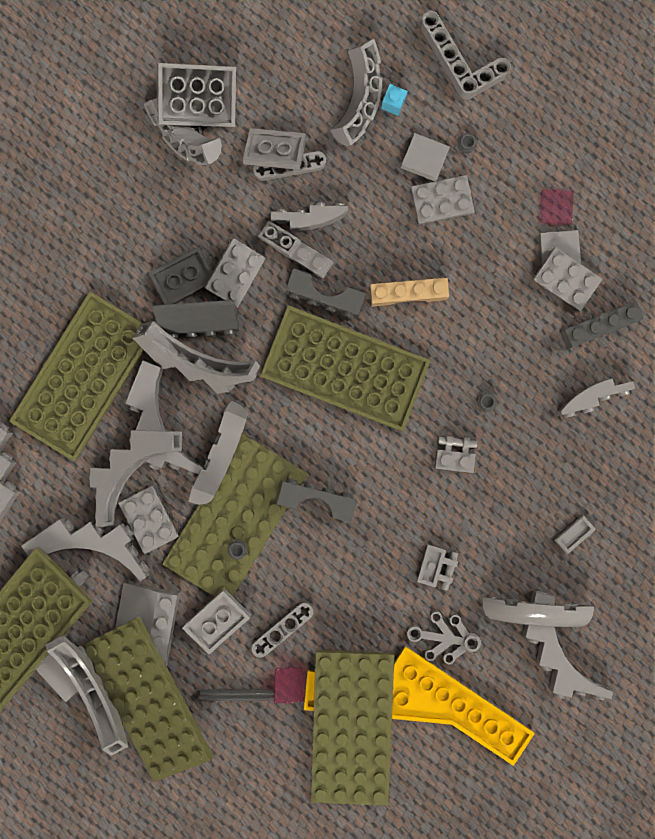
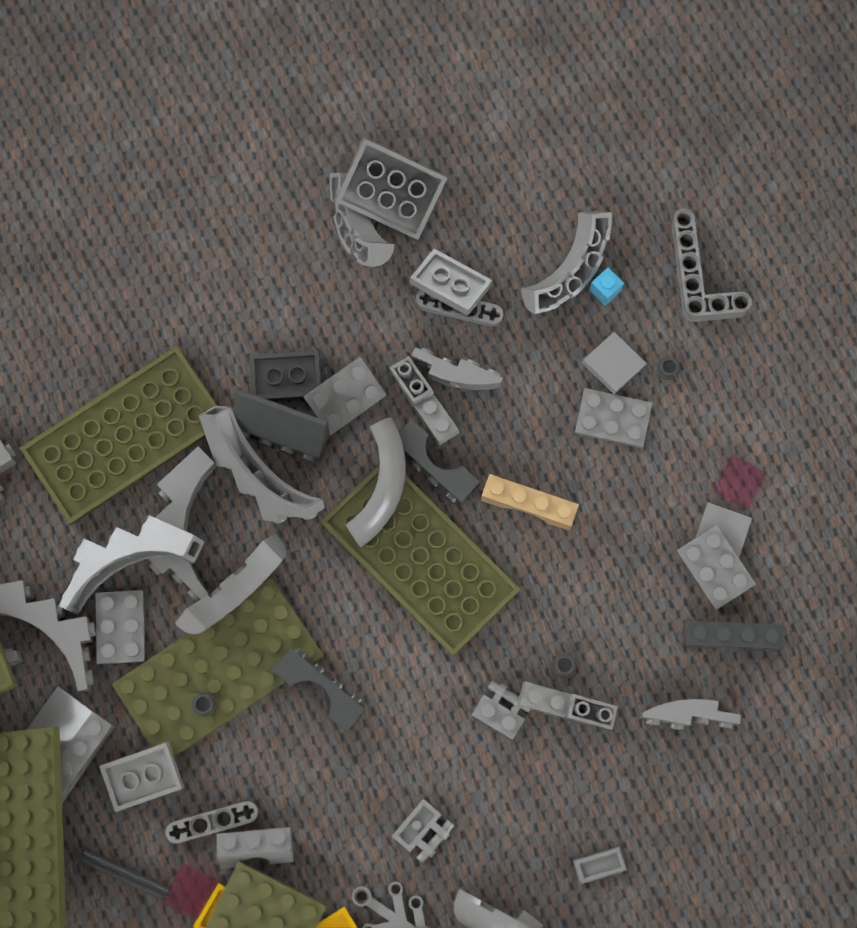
camera: 20 degrees right, 10 degrees down
(300, 327) = (388, 487): none -> light grey brick
(330, 629) = (271, 844): none -> light grey arch
(503, 430) = (567, 706): none -> light grey slope

